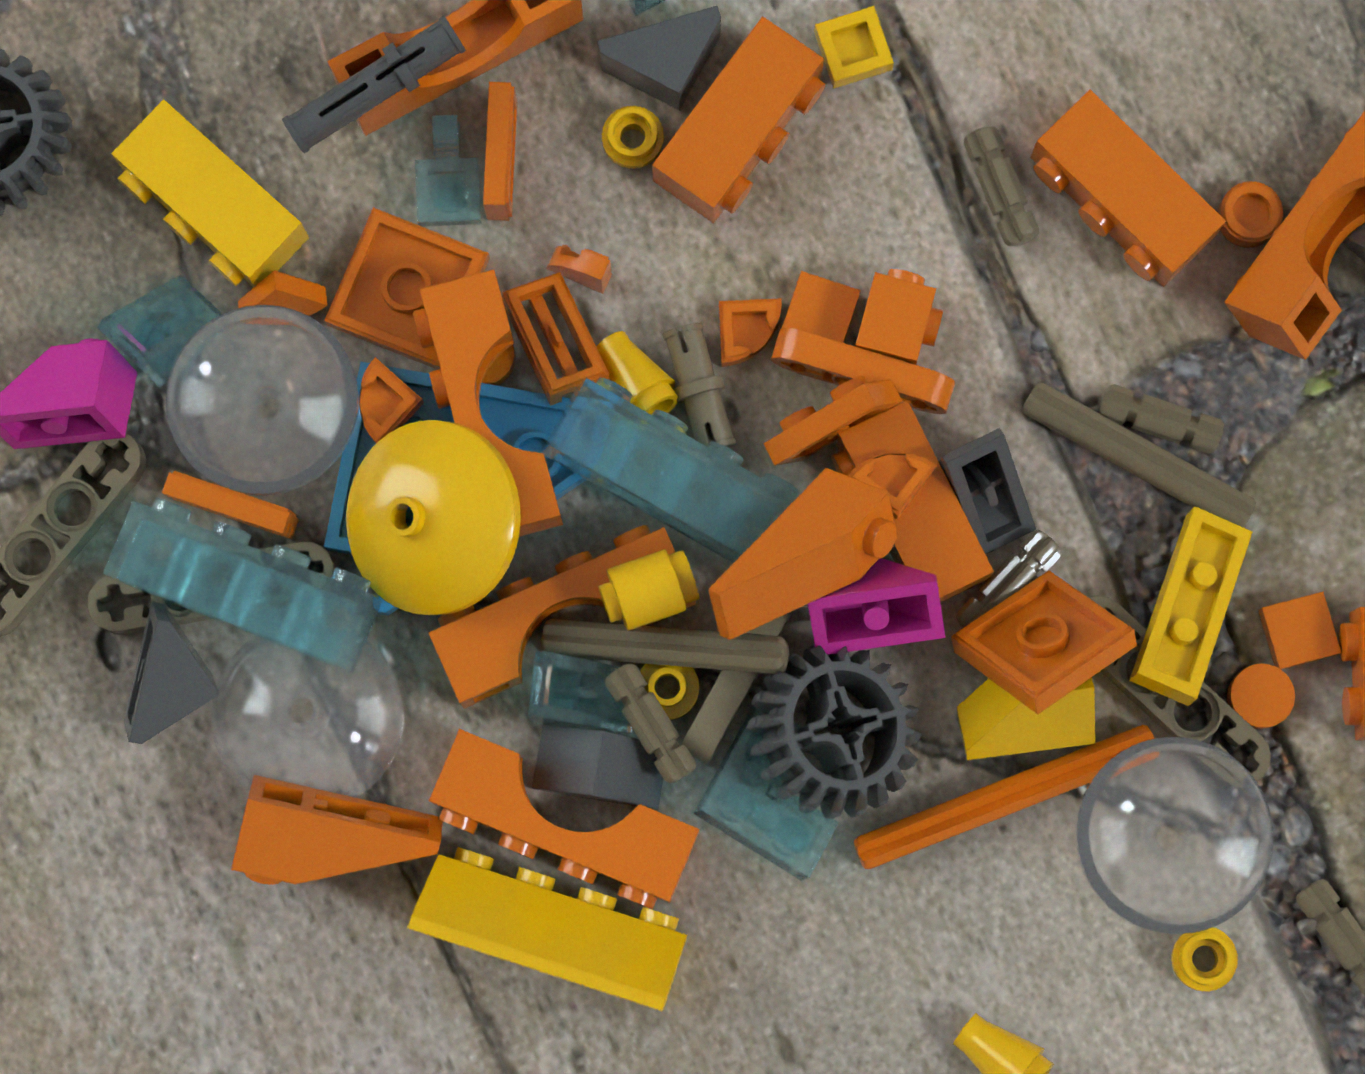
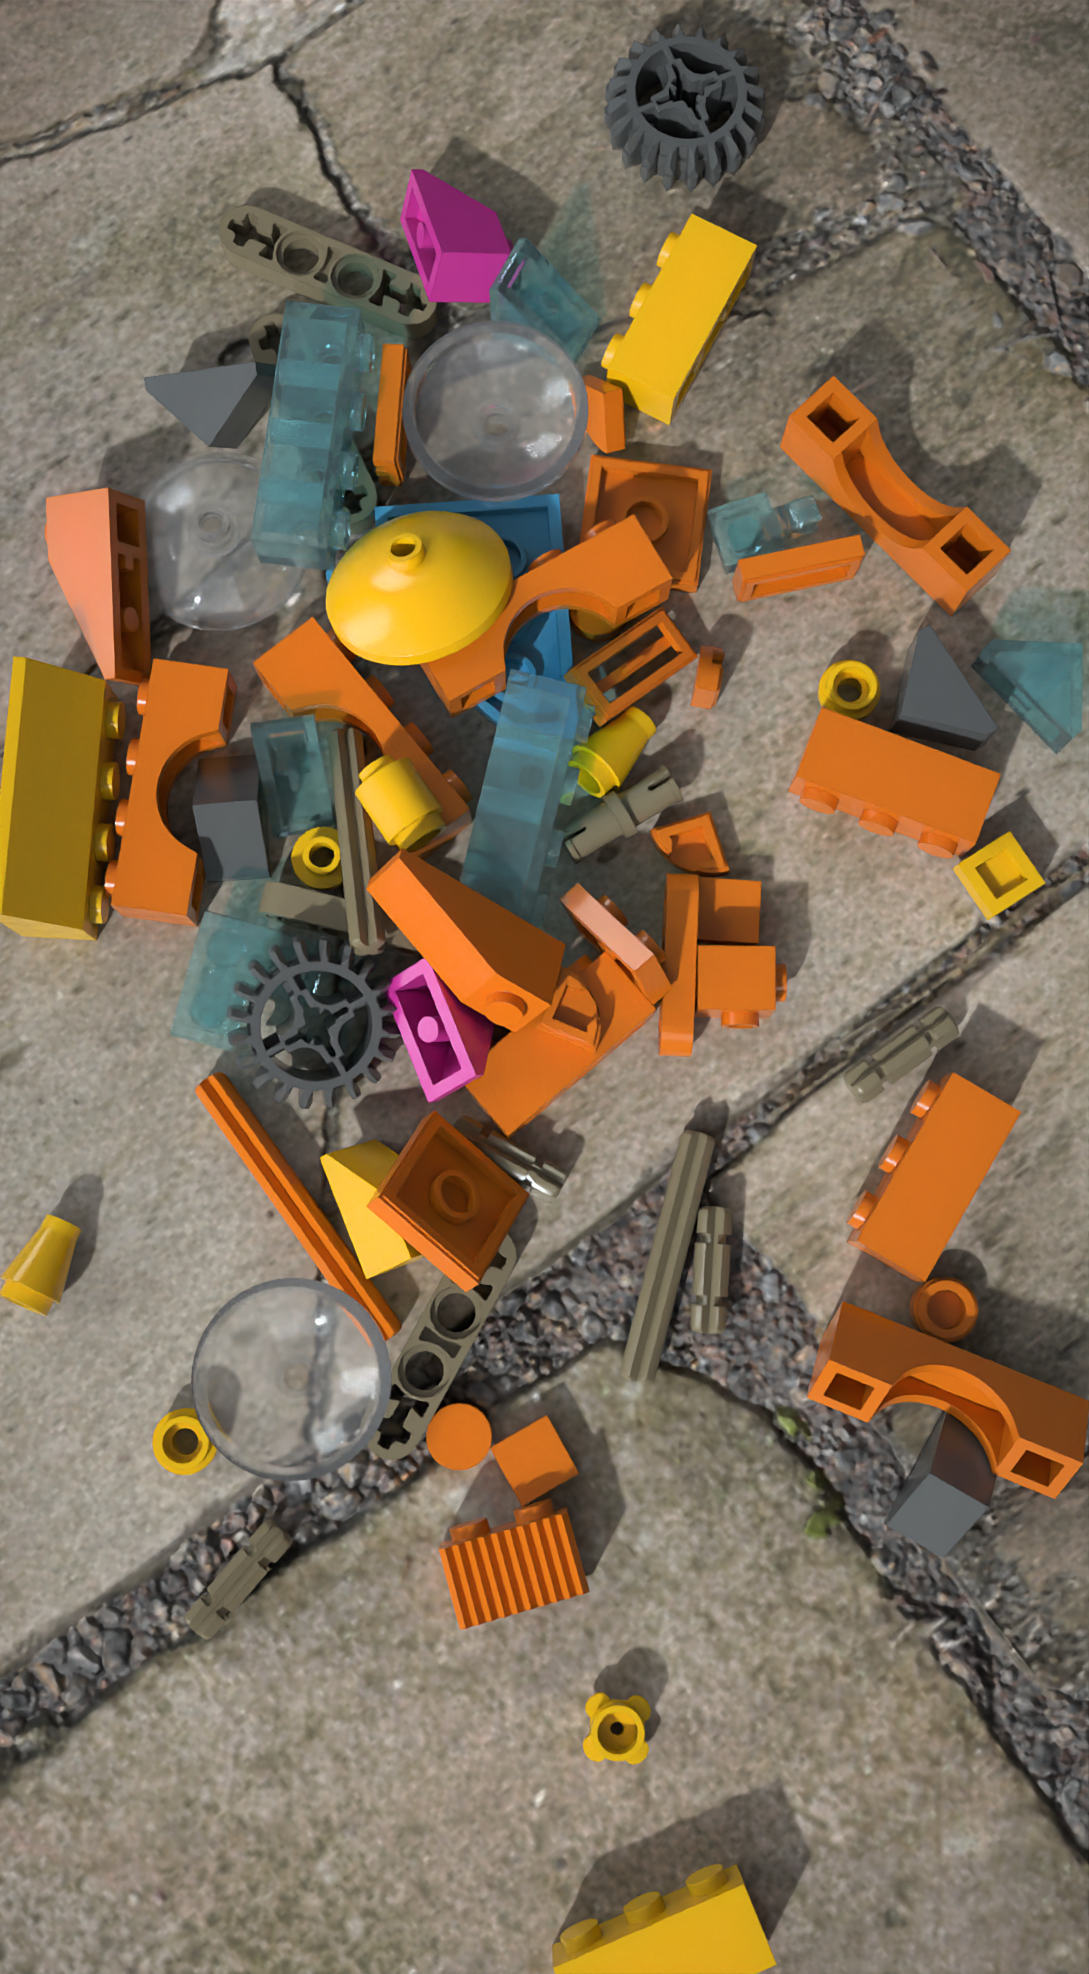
camera: 70 degrees right, 0 degrees up
(374, 84) = (839, 433): dark grey pin -> none
(385, 401) = (526, 523): orange tile -> none
(650, 723) = (279, 846): dark tan axle -> none
(989, 490) = (588, 1113): dark grey slope -> none
(1191, 606) = (526, 1341): yellow plate -> none

